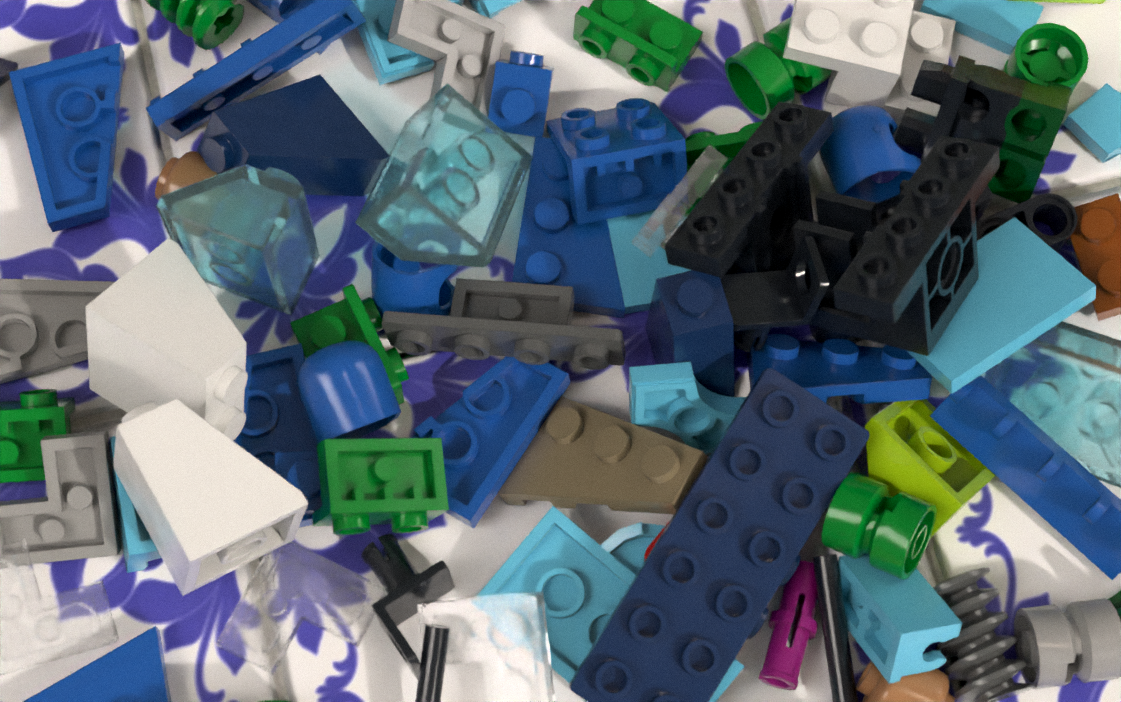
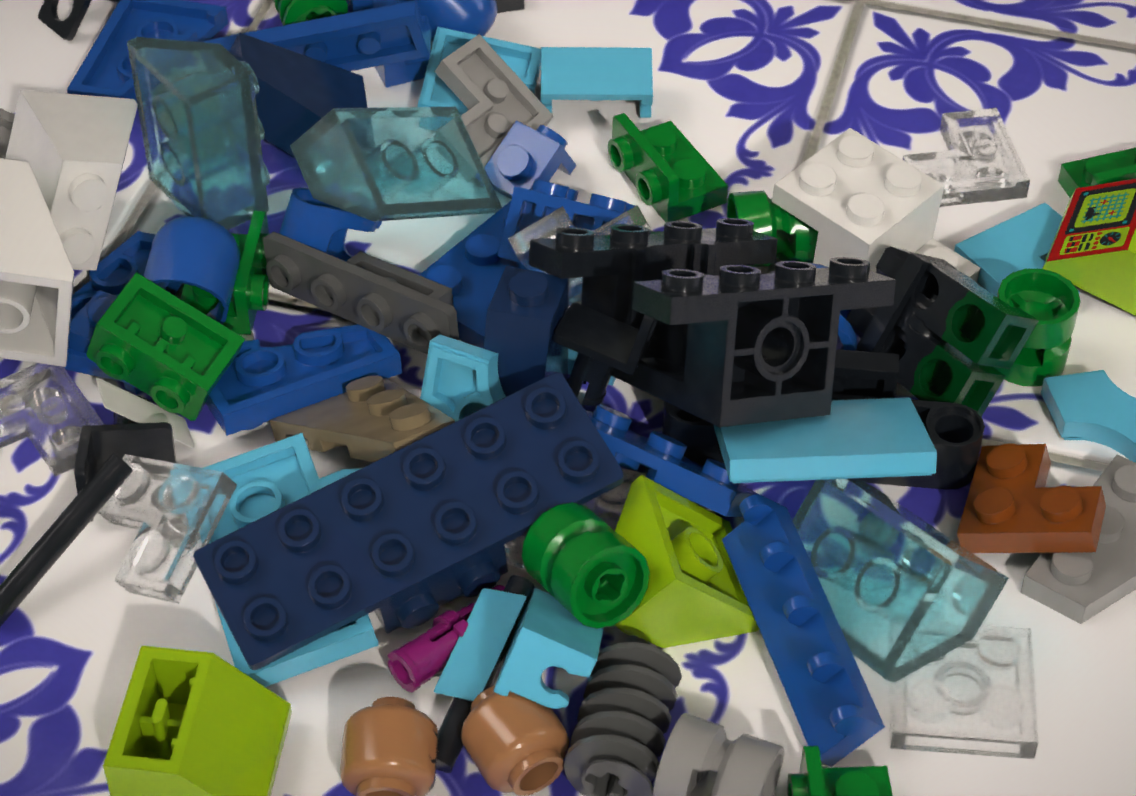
camera: 35 degrees right, 25 degrees down
(400, 555) = (142, 411): none -> white sticker
(831, 630) = (481, 644): none -> medium azure sticker

